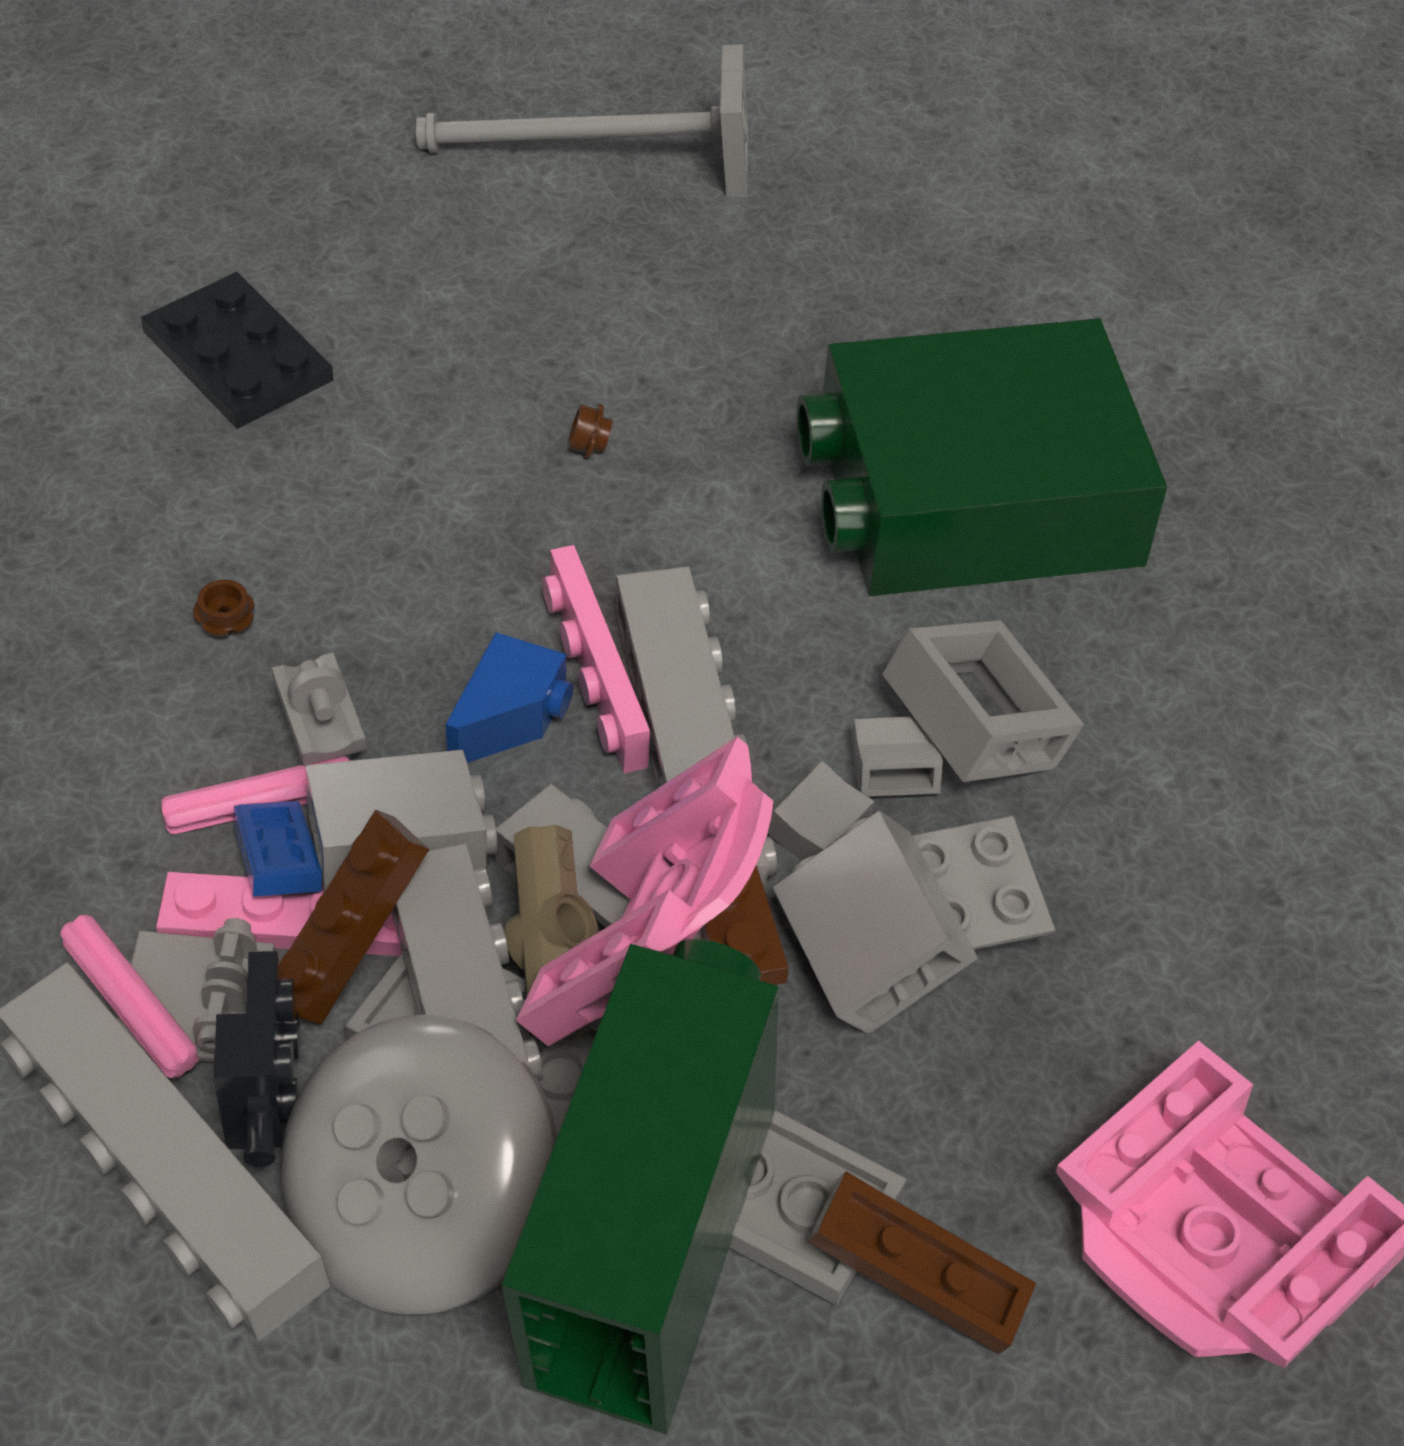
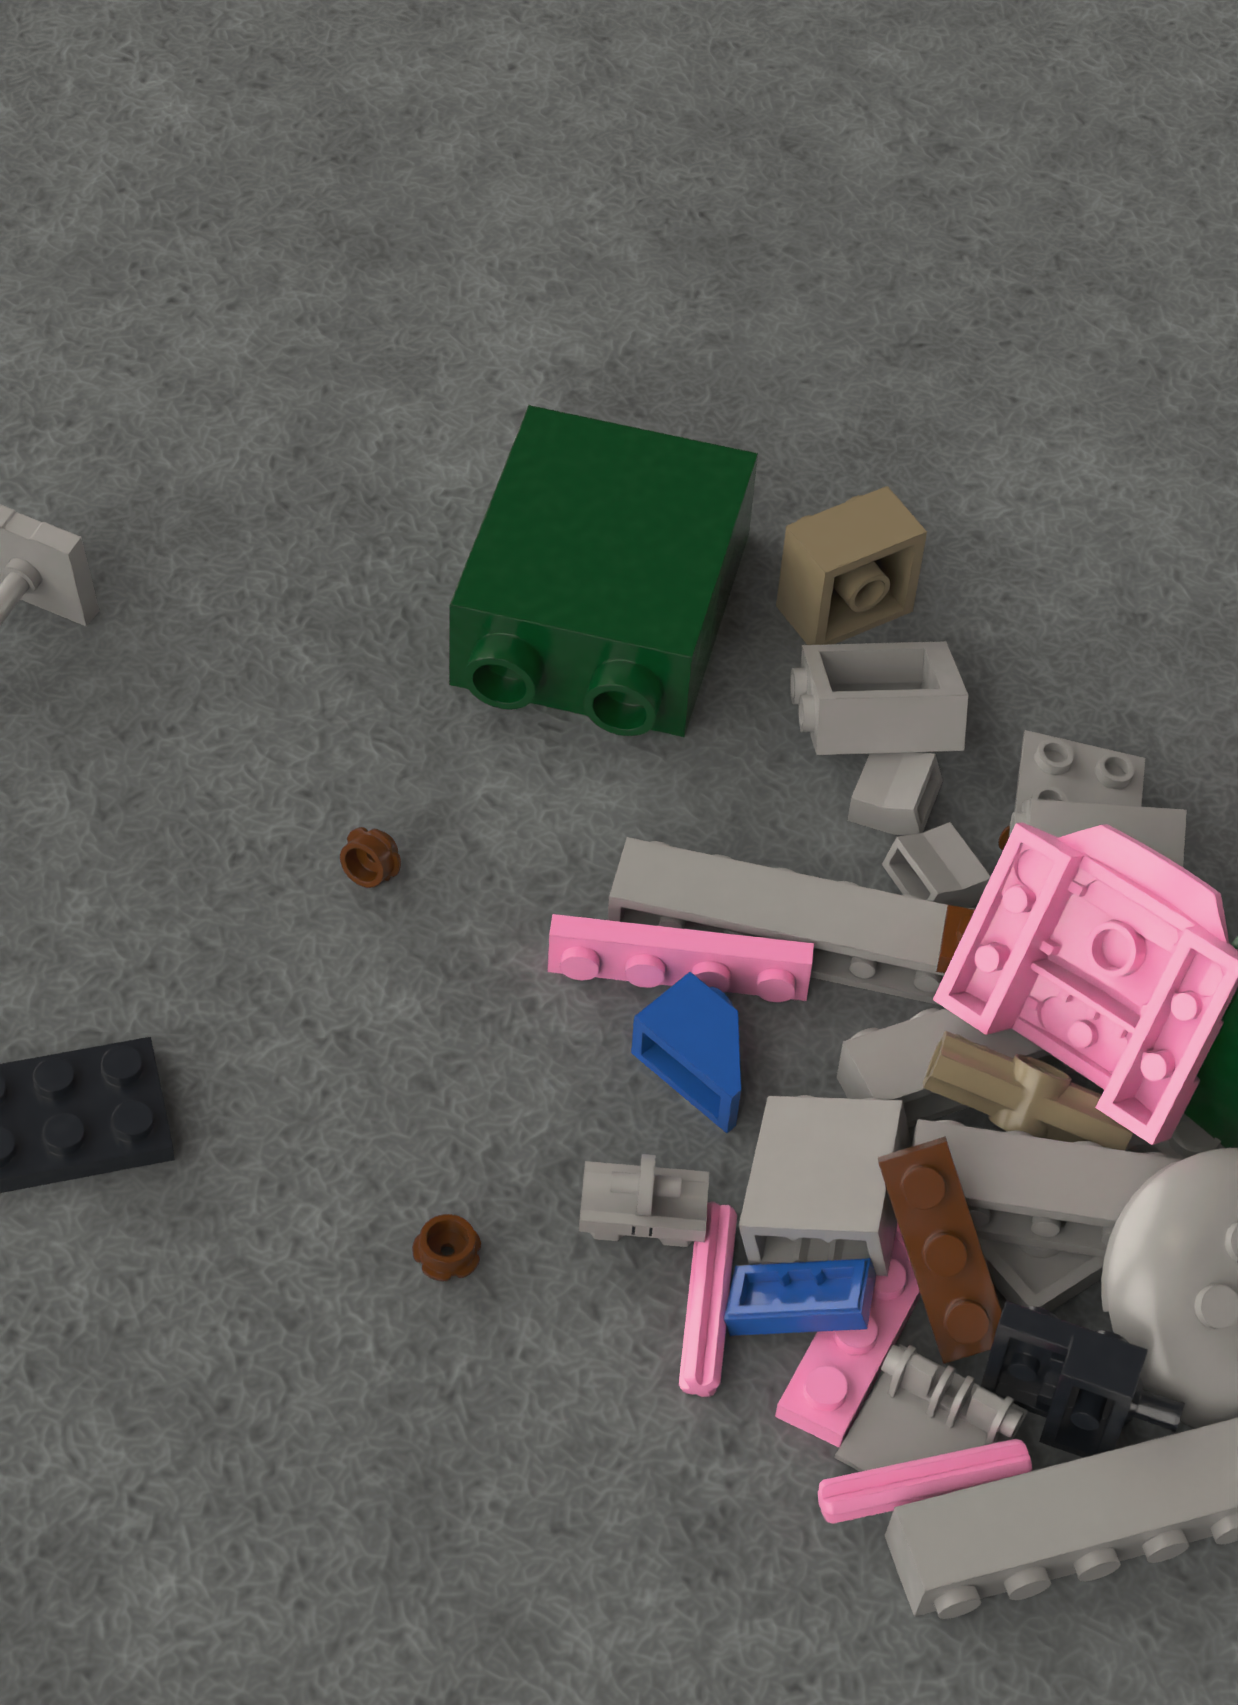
camera: 65 degrees left, 0 degrees up
(1117, 622) = (850, 567): none -> dark tan brick

